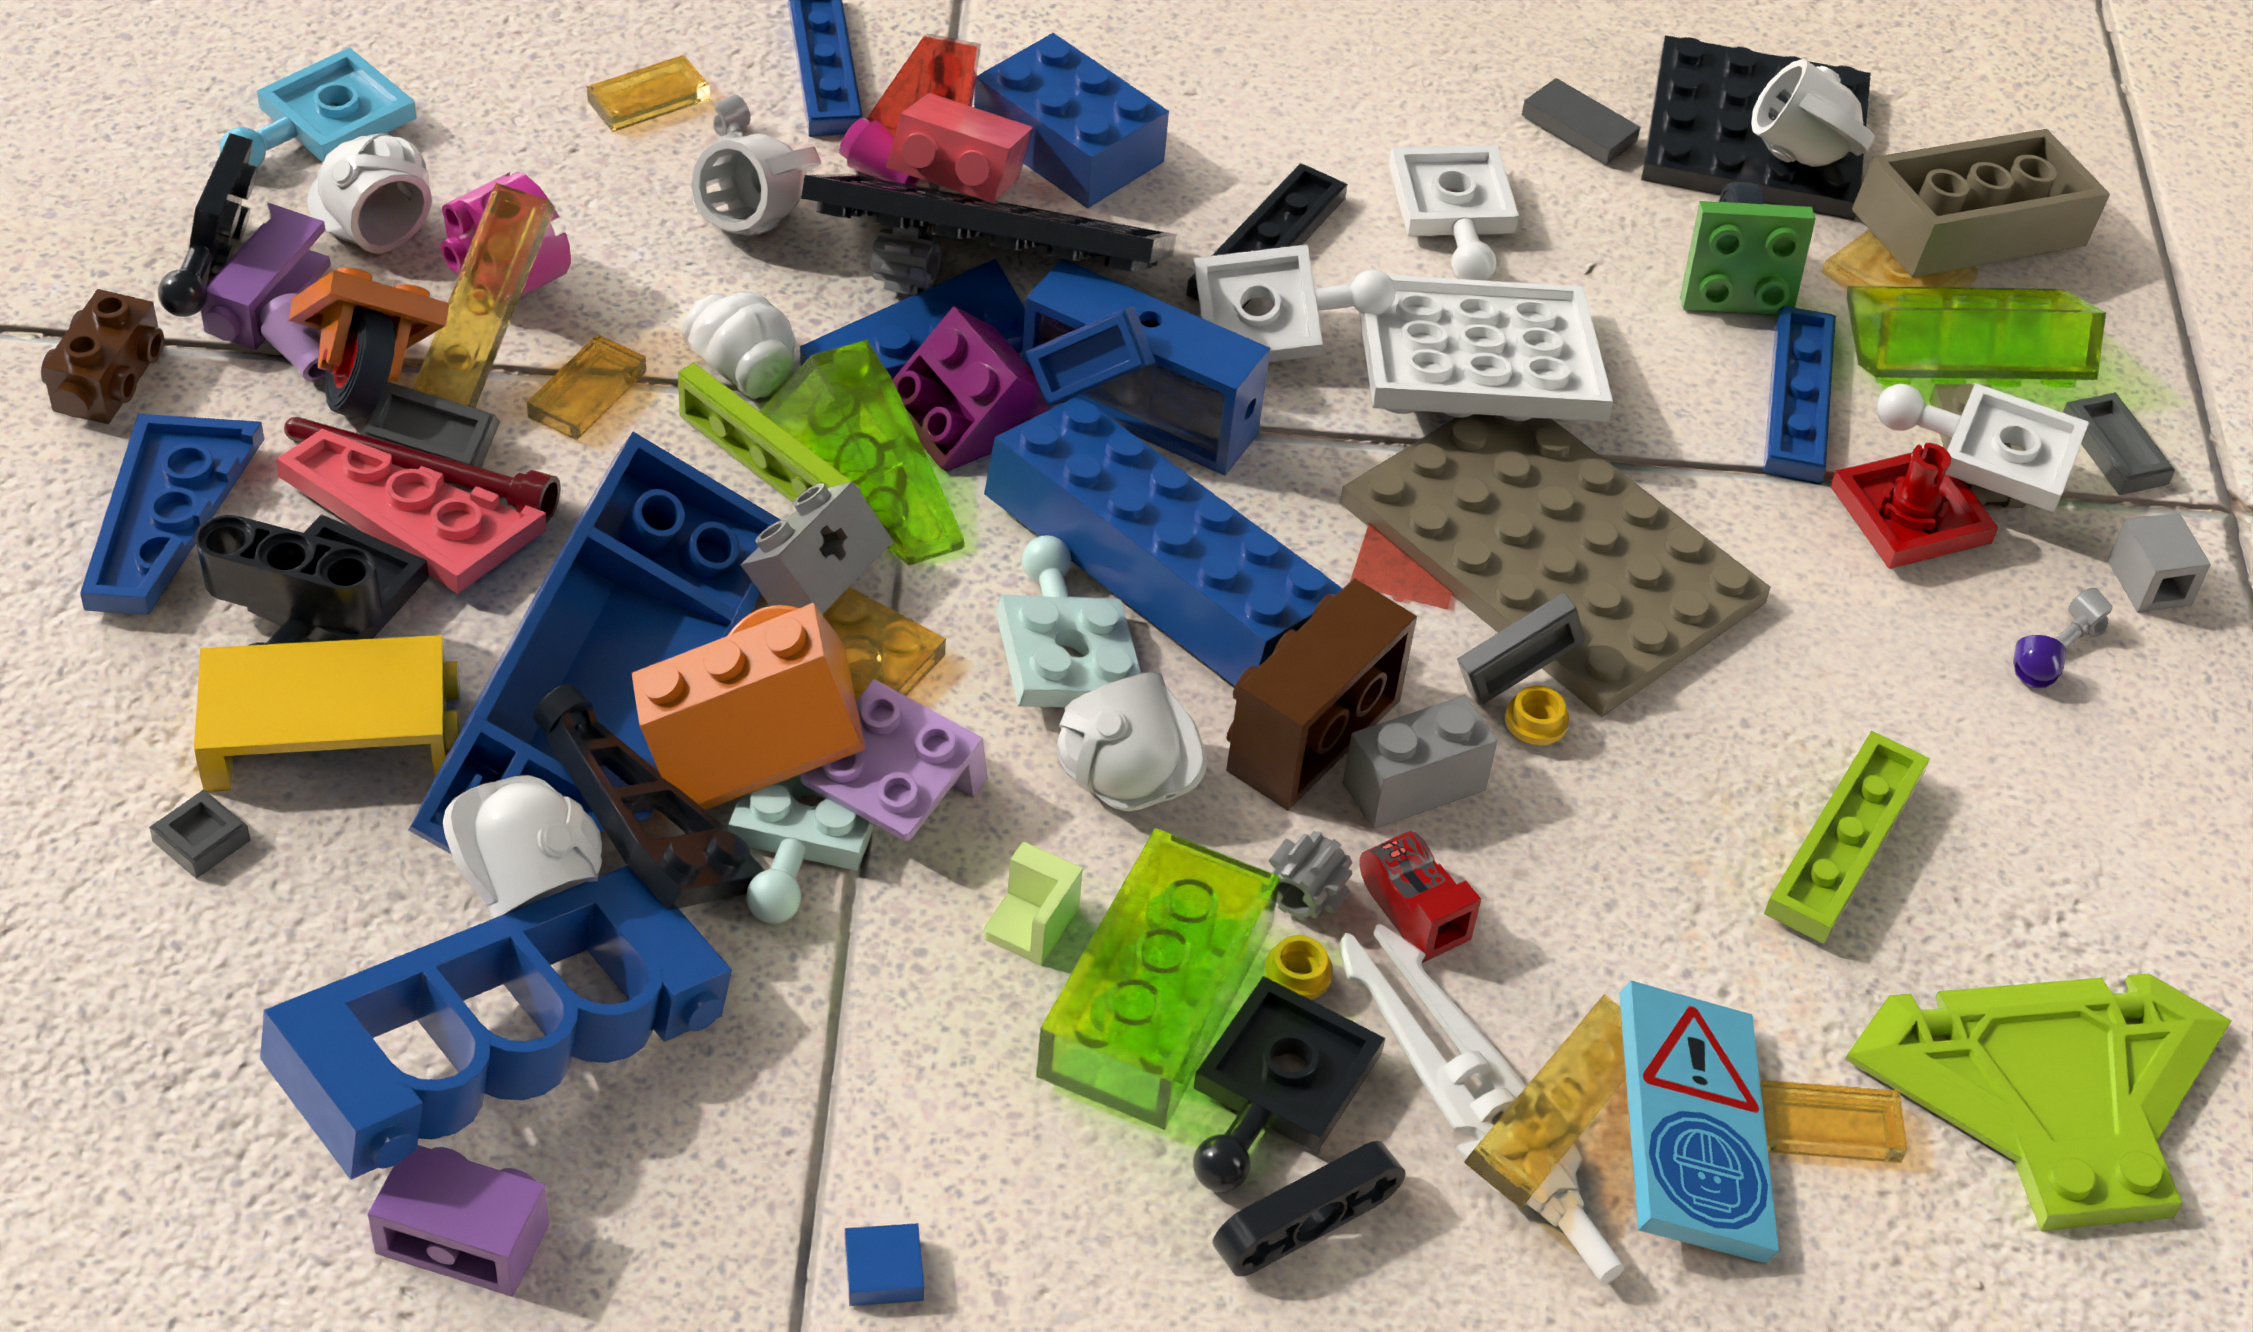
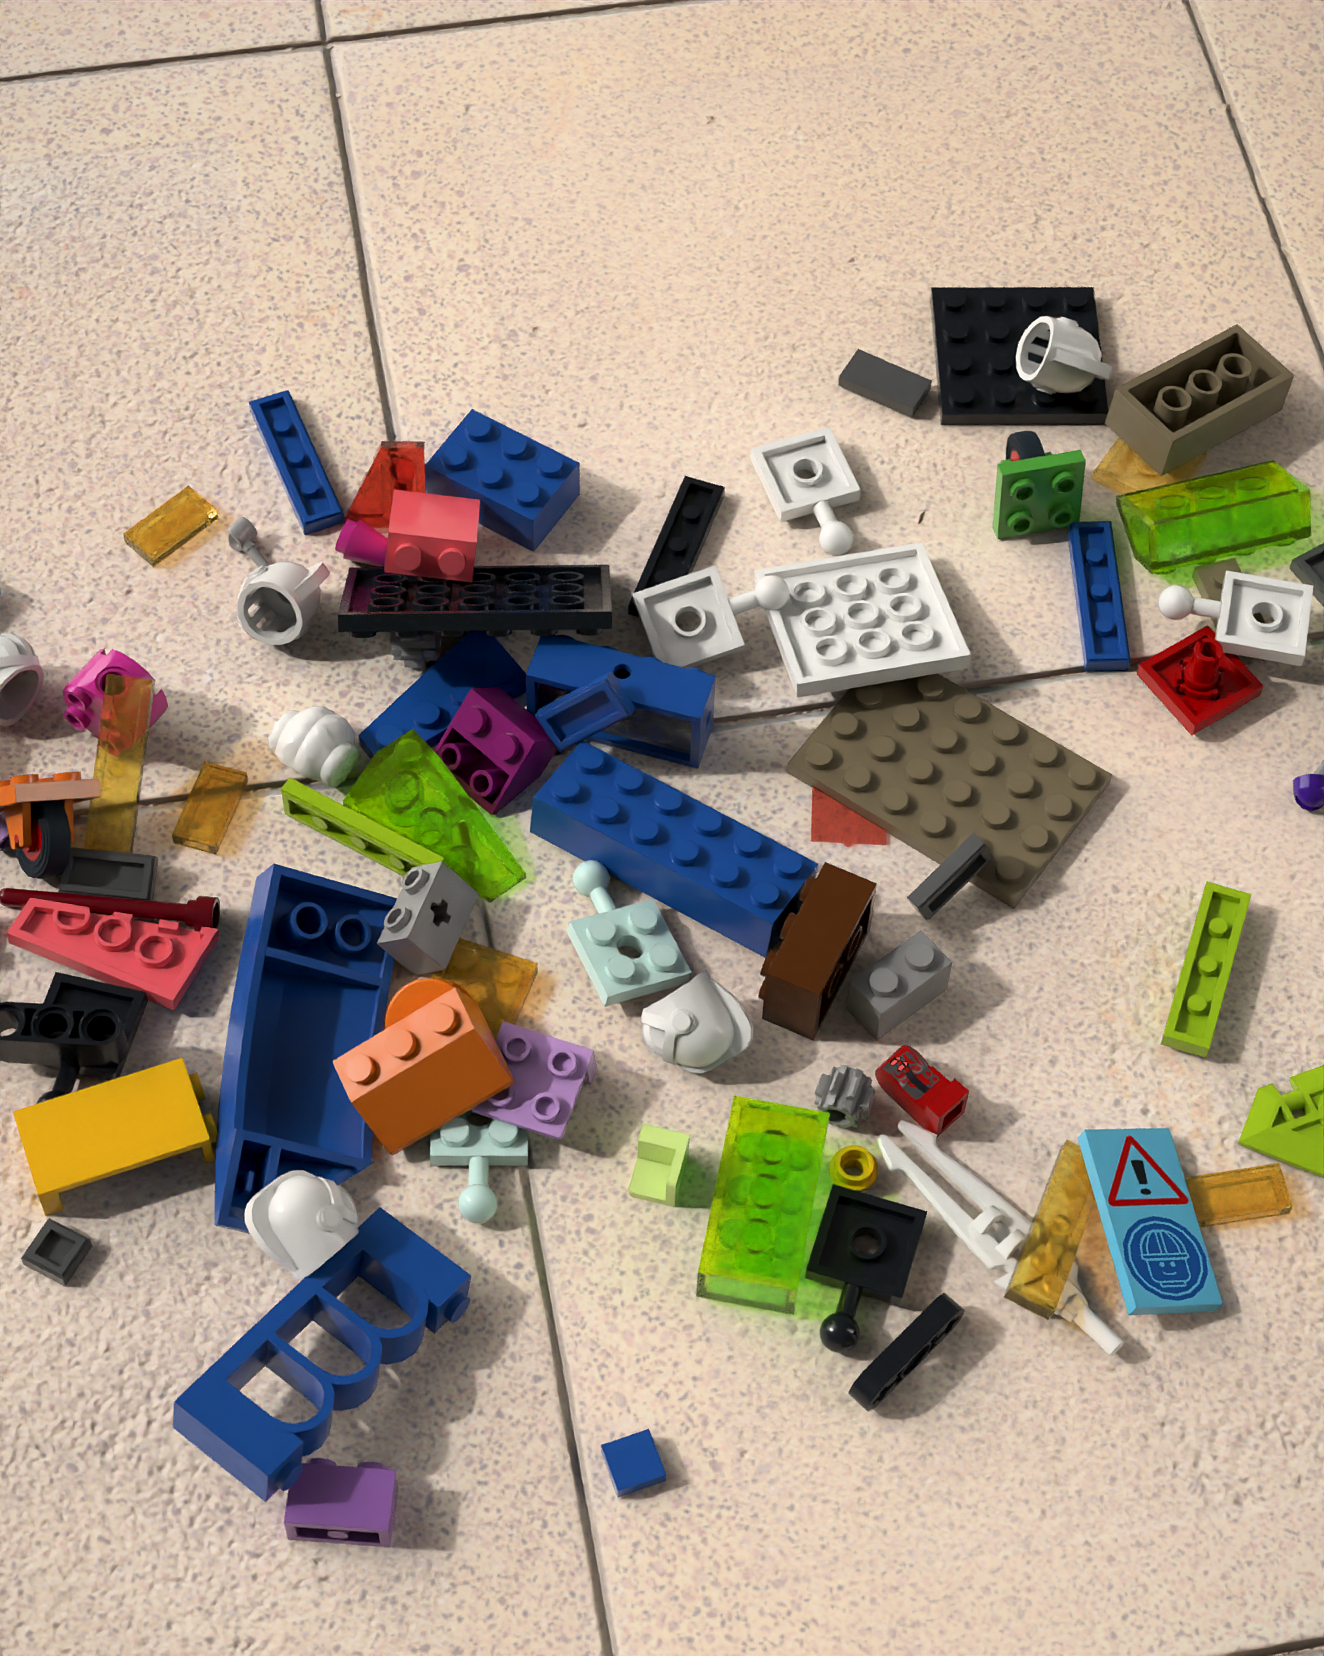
camera: 10 degrees left, 10 degrees up
(678, 870) = (408, 1207): black plate -> none
(1537, 715) = (973, 913): yellow plate -> none

